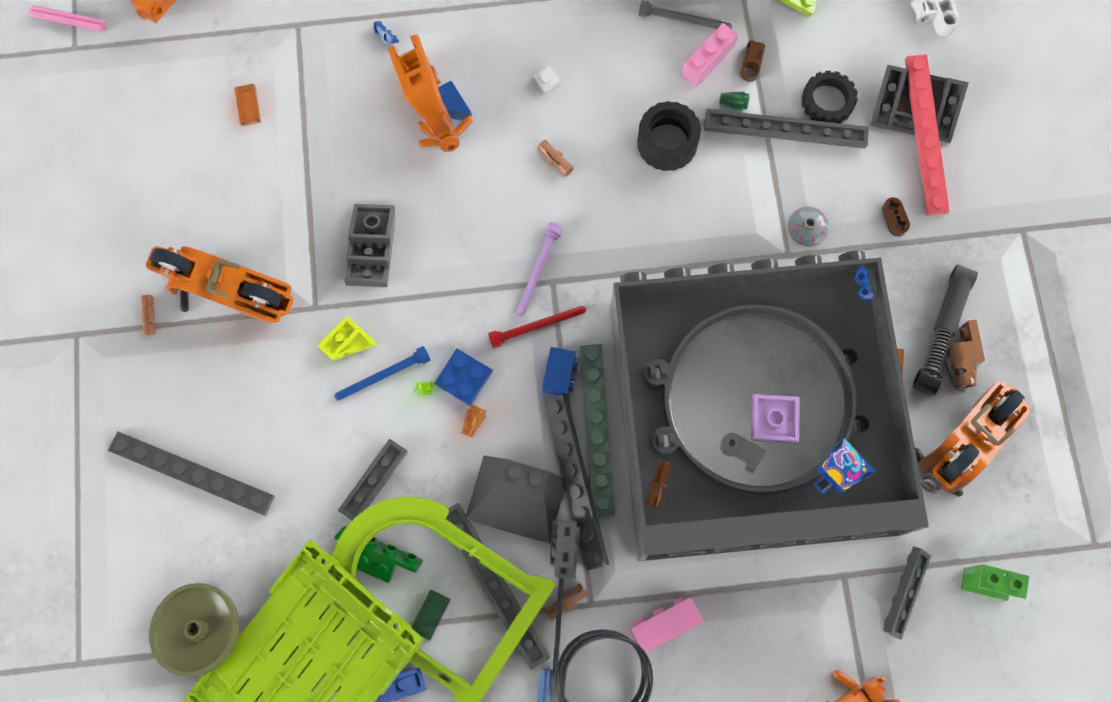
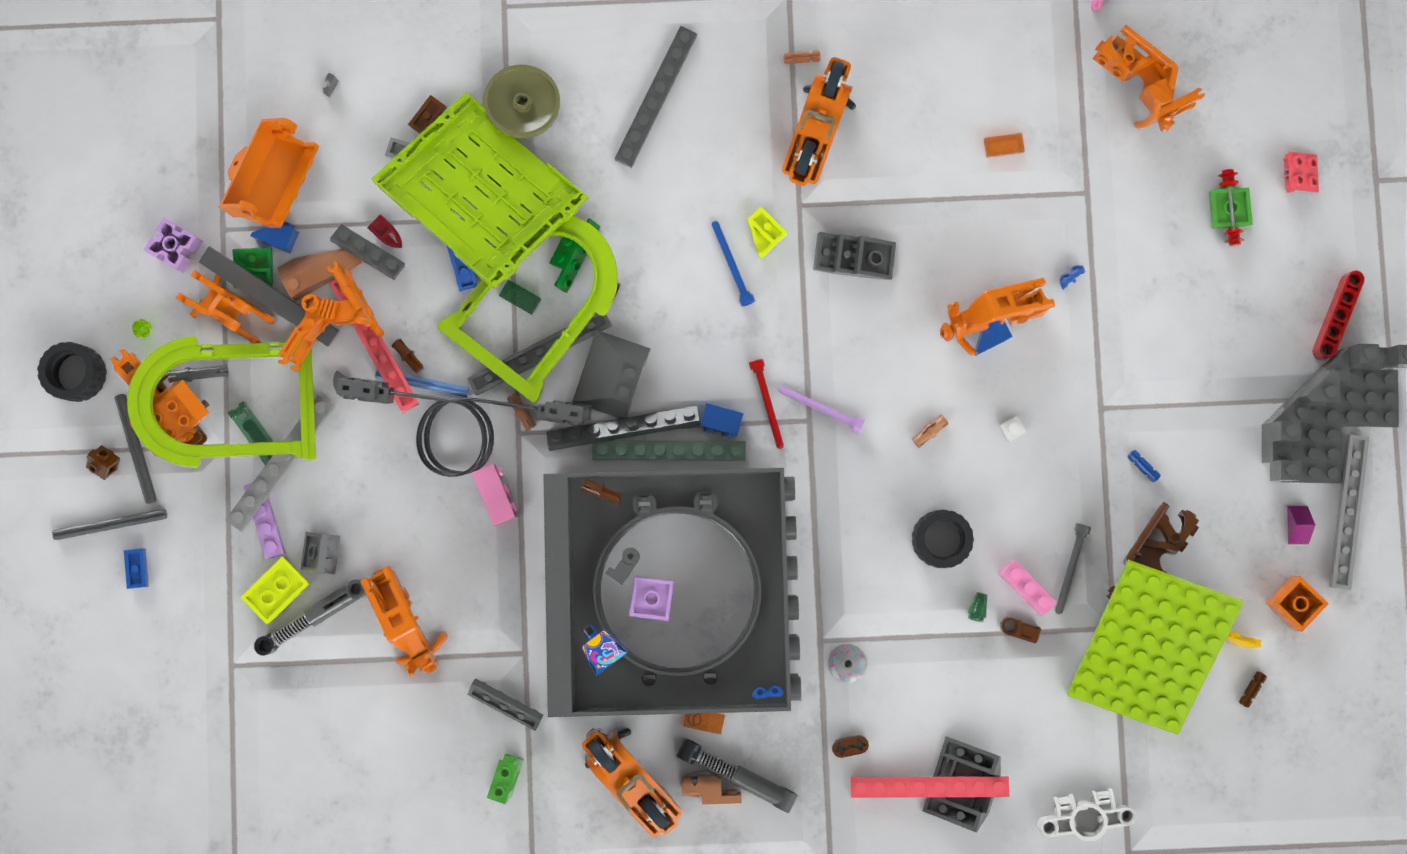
camera: 95 degrees right, 10 degrees up
(373, 479) = (637, 252): dark grey plate -> none
(424, 388) = (716, 300): clear neon green plate -> none
(463, 377) = (724, 335): blue plate -> none
(473, 419) = (684, 341): clear orange cone -> none
(786, 128) = (945, 653): dark grey plate -> none
(831, 79) = (992, 711): black tyre -> none

